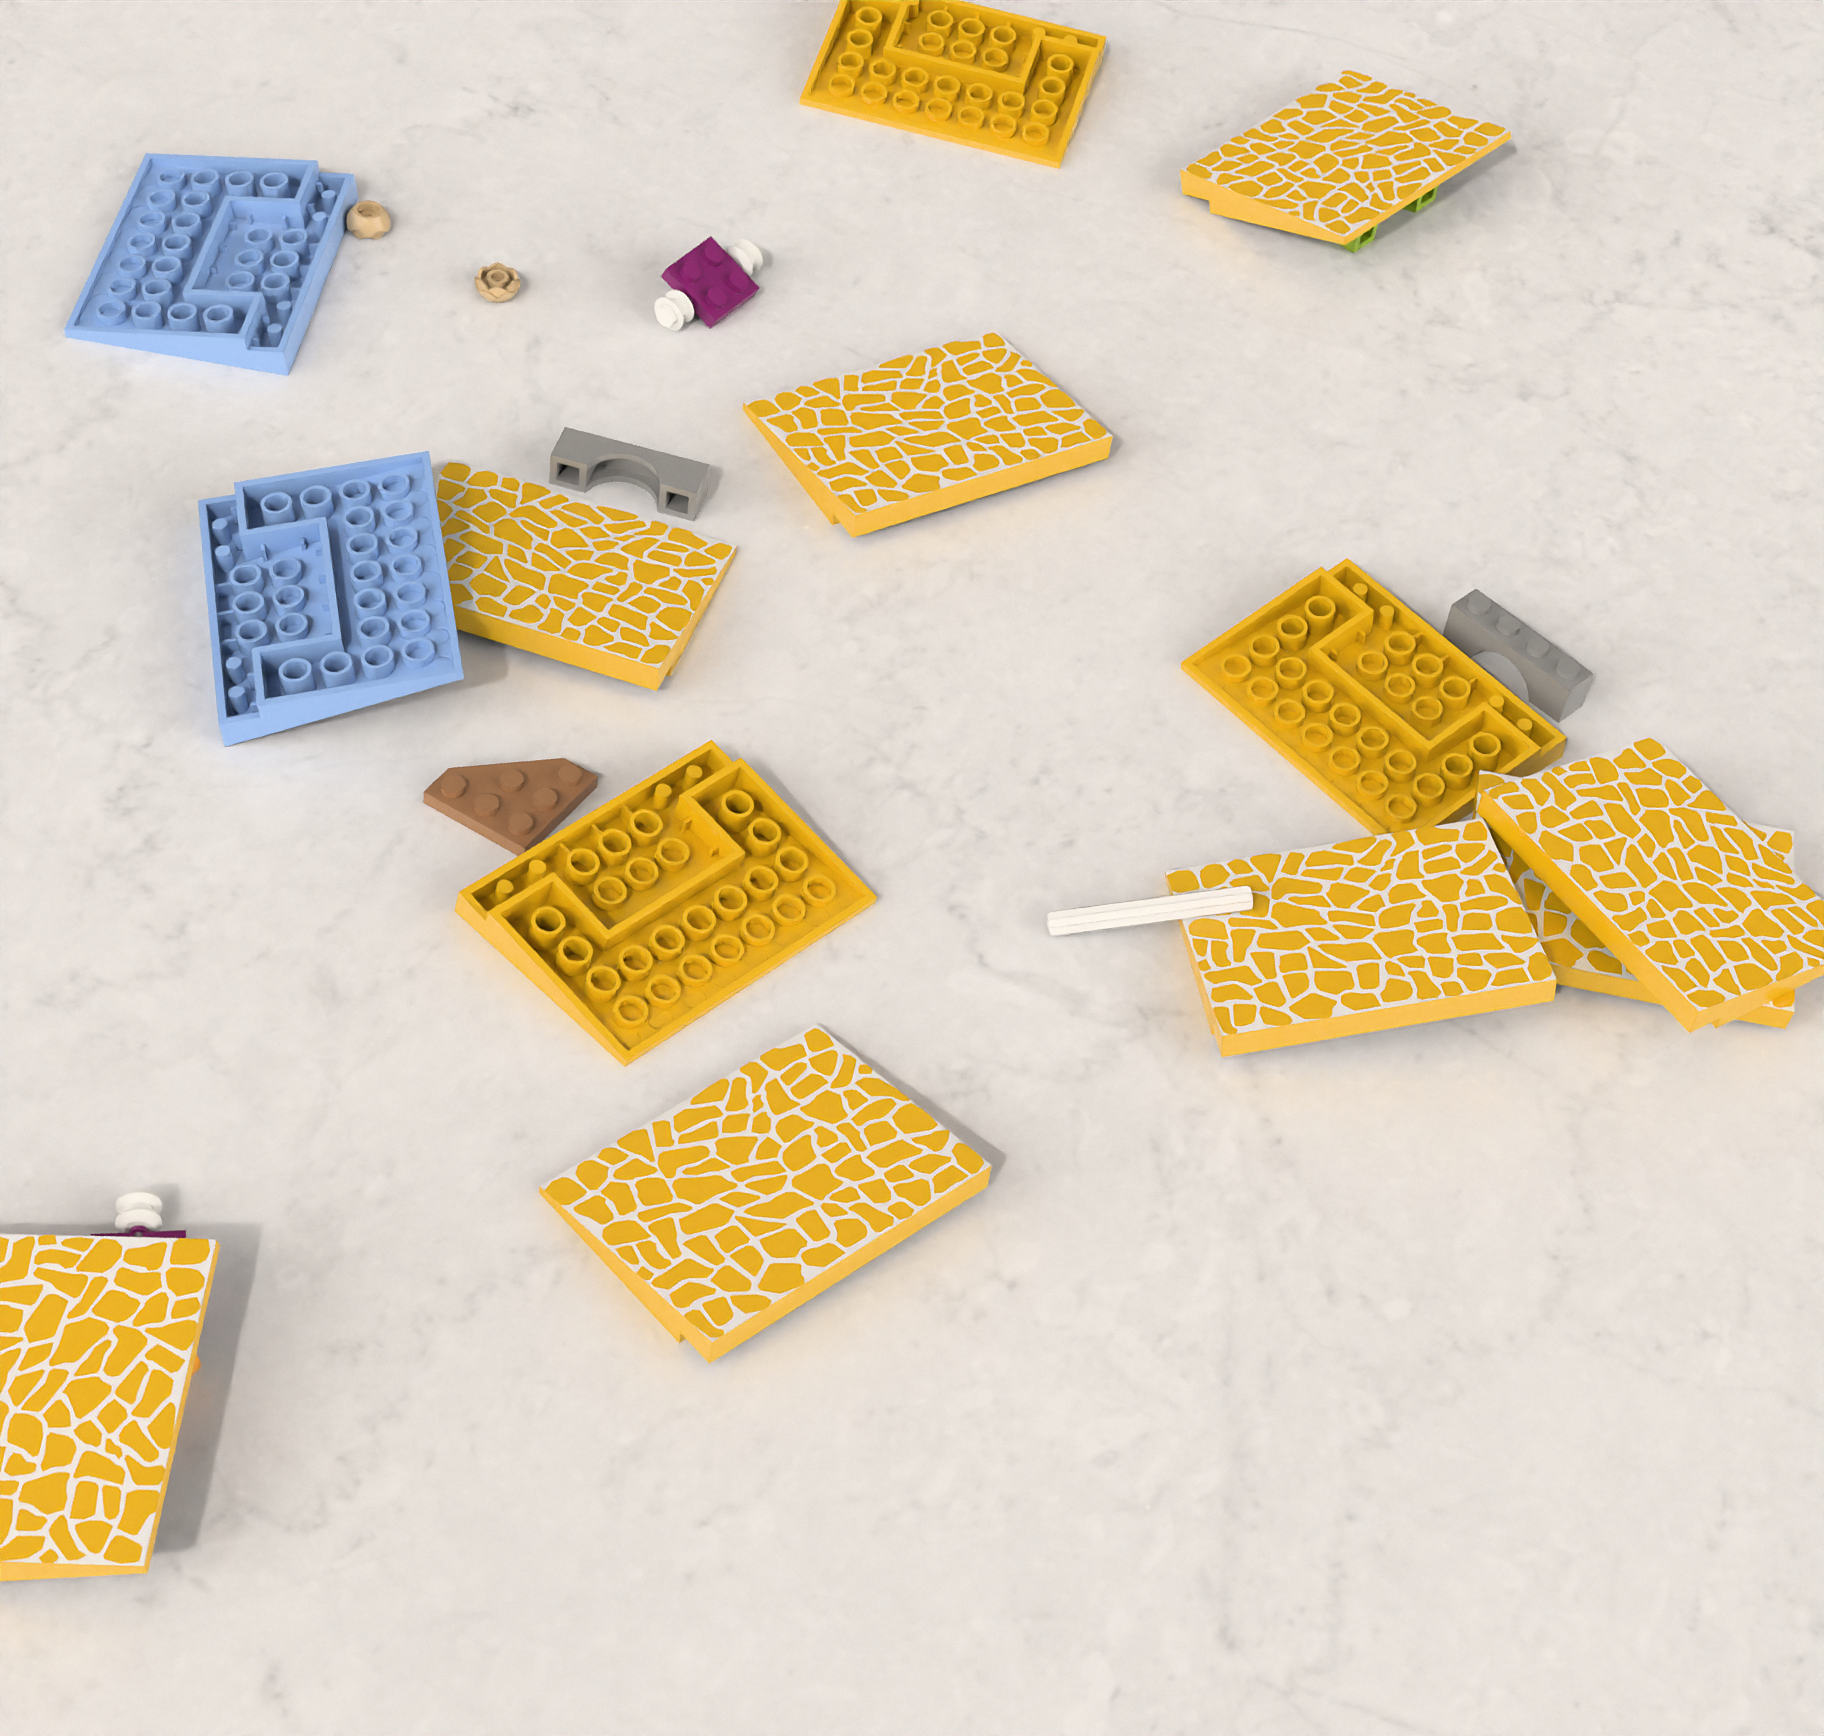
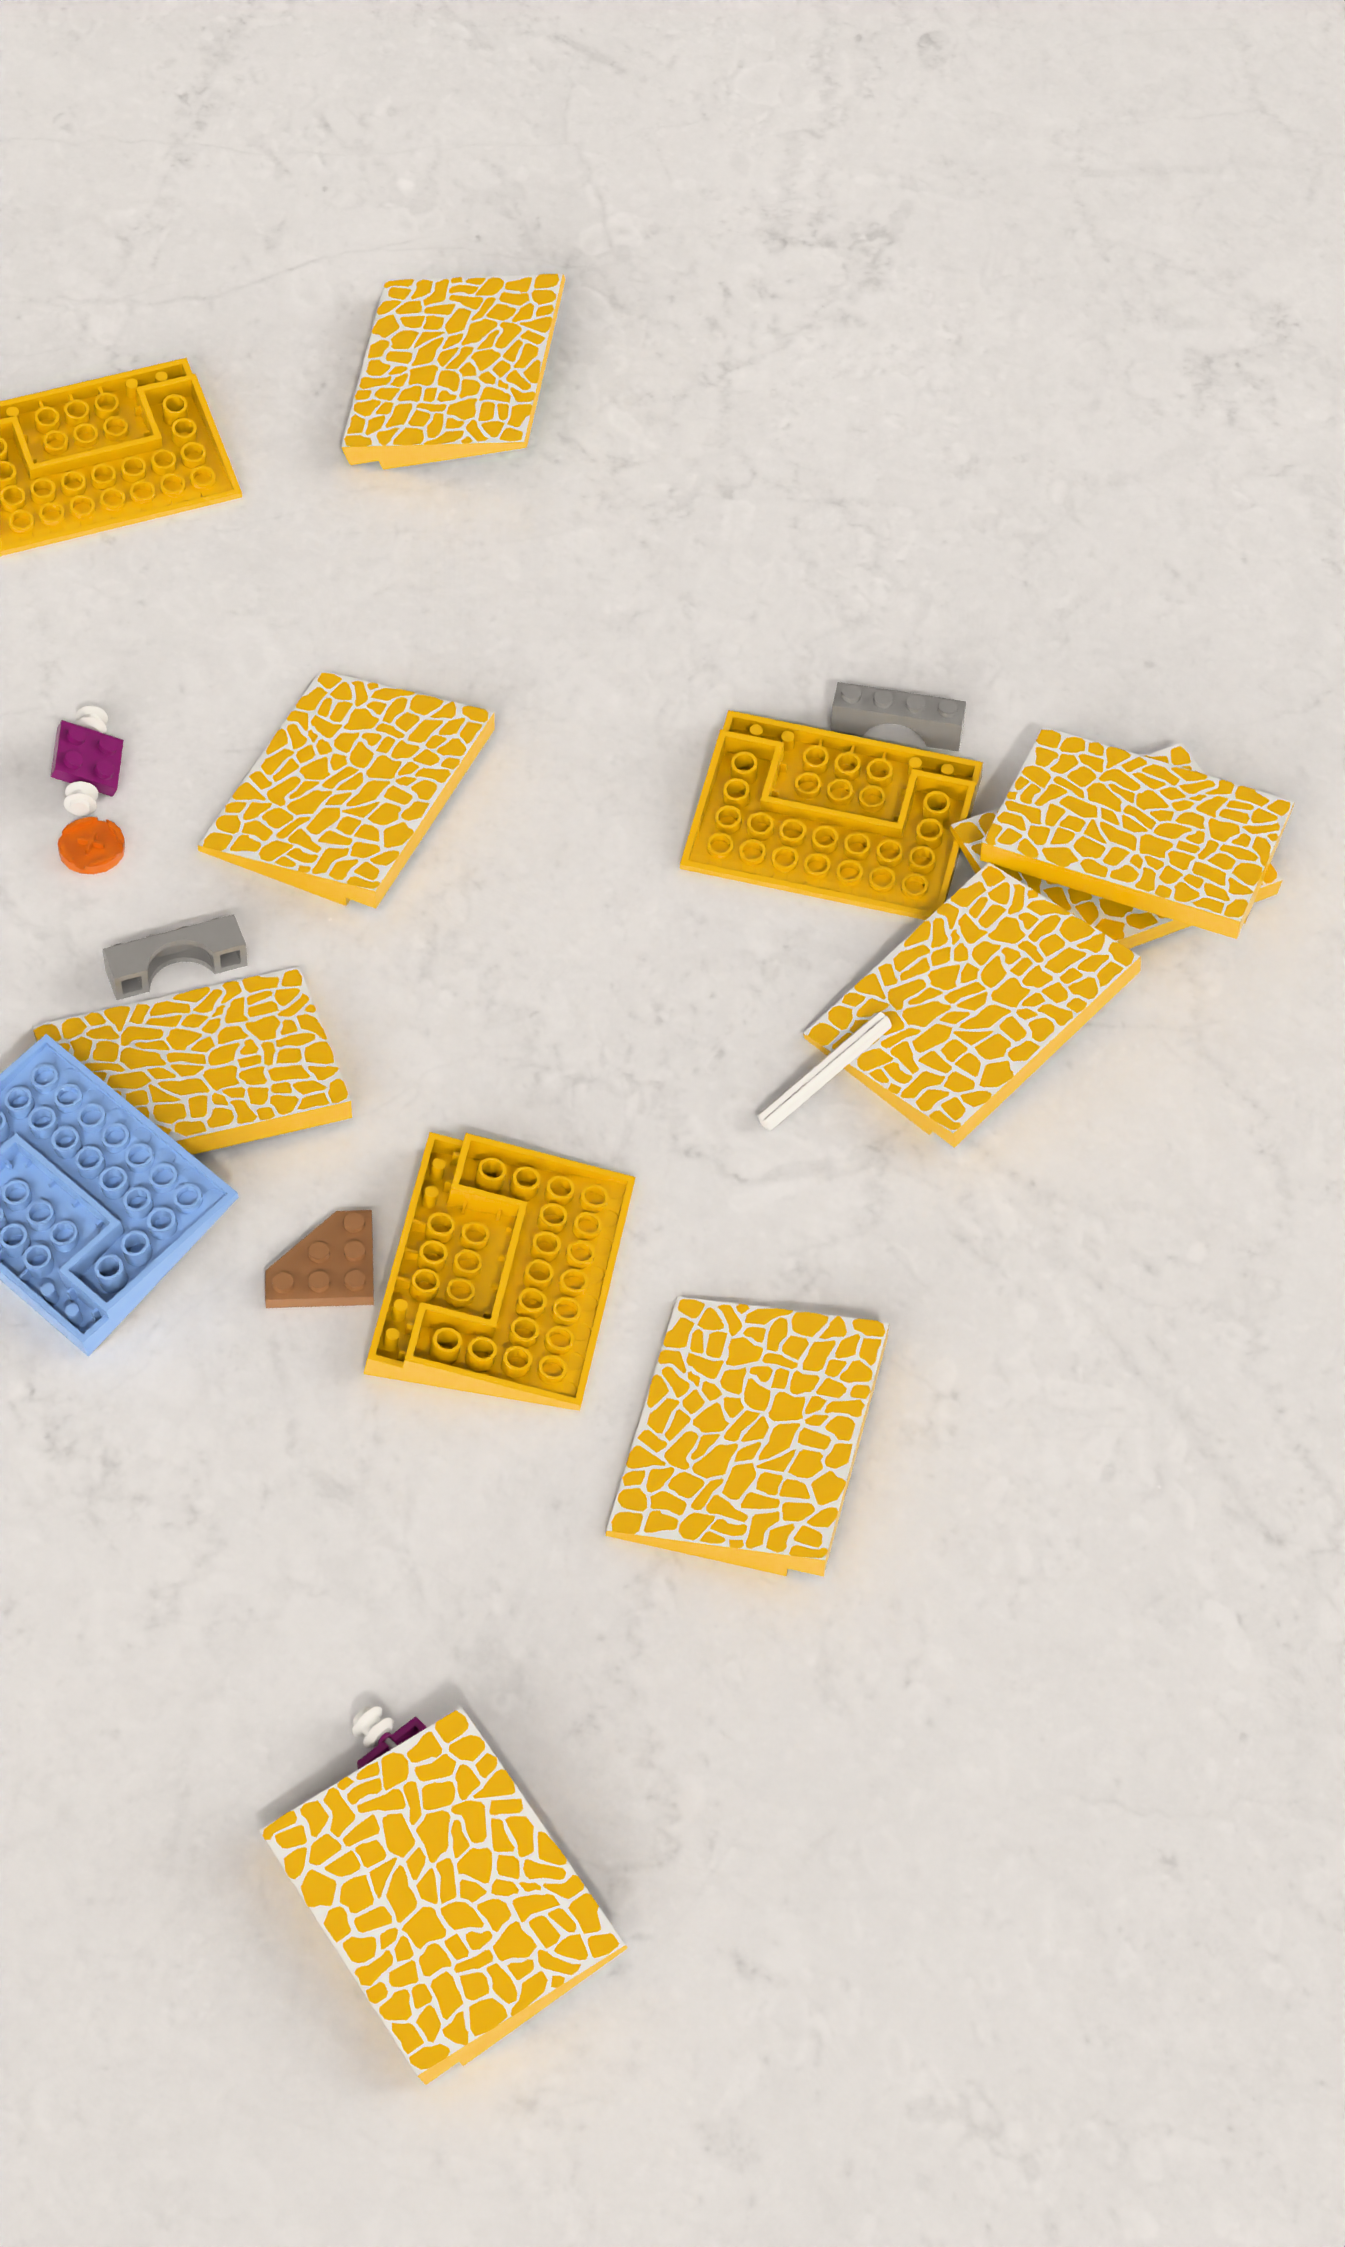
camera: 30 degrees left, 5 degrees up
(649, 353) = (91, 845): none -> orange tile

